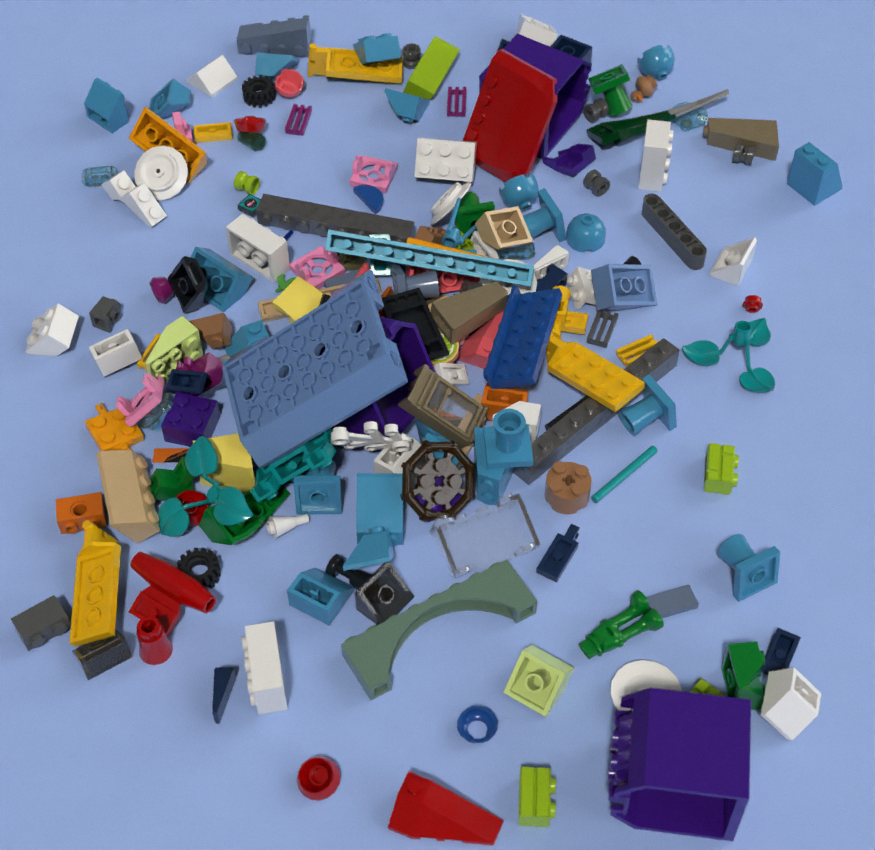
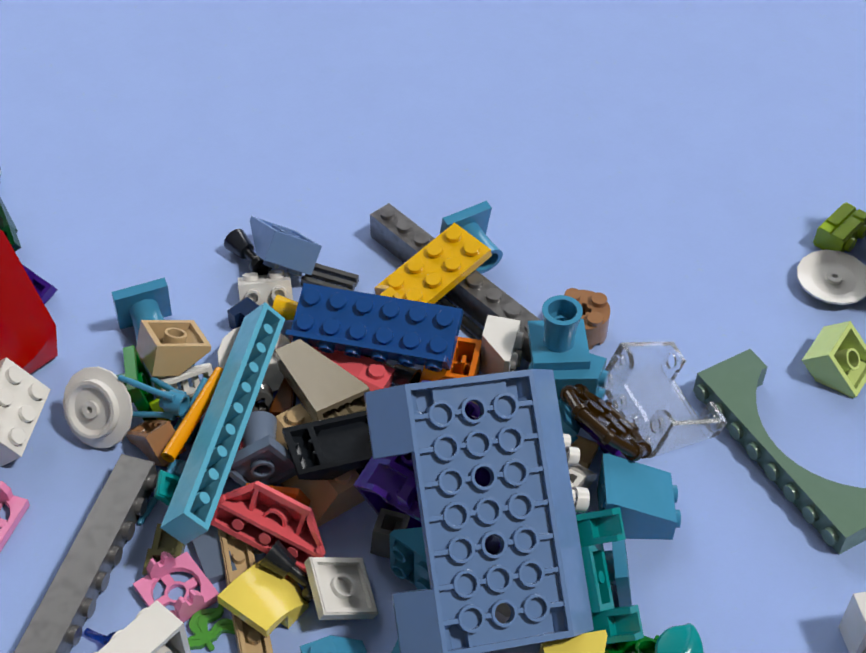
camera: 90 degrees left, 5 degrees down
(281, 524) = (656, 616): white cone -> none
(318, 595) = (767, 567): dark azure slope -> none
(355, 577) = (737, 527): black piece -> none
(370, 196) = (37, 521): blue tile -> none
(371, 550) = (712, 504): dark azure slope -> none
(382, 594) = (754, 506): clear smoke slope -> none
(520, 192) = (86, 339): dark azure cylinder -> none
(556, 256) = (215, 315): white slope -> none
(559, 554) = (666, 330): dark blue plate -> none
(586, 233) = (178, 278): dark azure cylinder -> none
(597, 183) = (81, 265): dark grey wheel -> none
(608, 635) = (766, 296): green piece -> none
(625, 473) = (540, 269): teal bar -> none
(635, 349) = (362, 238): yellow tile -> none
(655, 155) = (66, 192): white brick -> none
(673, 601) = (718, 252): sand blue tile -> none
(674, 231) = (183, 202): dark grey beam -> none
(720, 469) = (545, 197): lime brick -> none
(734, 261) = (243, 154): white slope -> none
(743, 671) = (808, 197): green slope -> none
(745, 333) = (350, 157): teal plant -> none
(748, 153) = (66, 132): dark grey wheel -> none
(749, 132) = (36, 128): dark tan slope -> none
(752, 303) = (308, 151): red plate -> none
(752, 570) = (683, 178): dark azure plant -> none
(780, 651) = (764, 180): dark blue slope -> none
(789, 702) = (832, 167): white slope -> none
(814, 174) = (127, 74): dark azure slope -> none

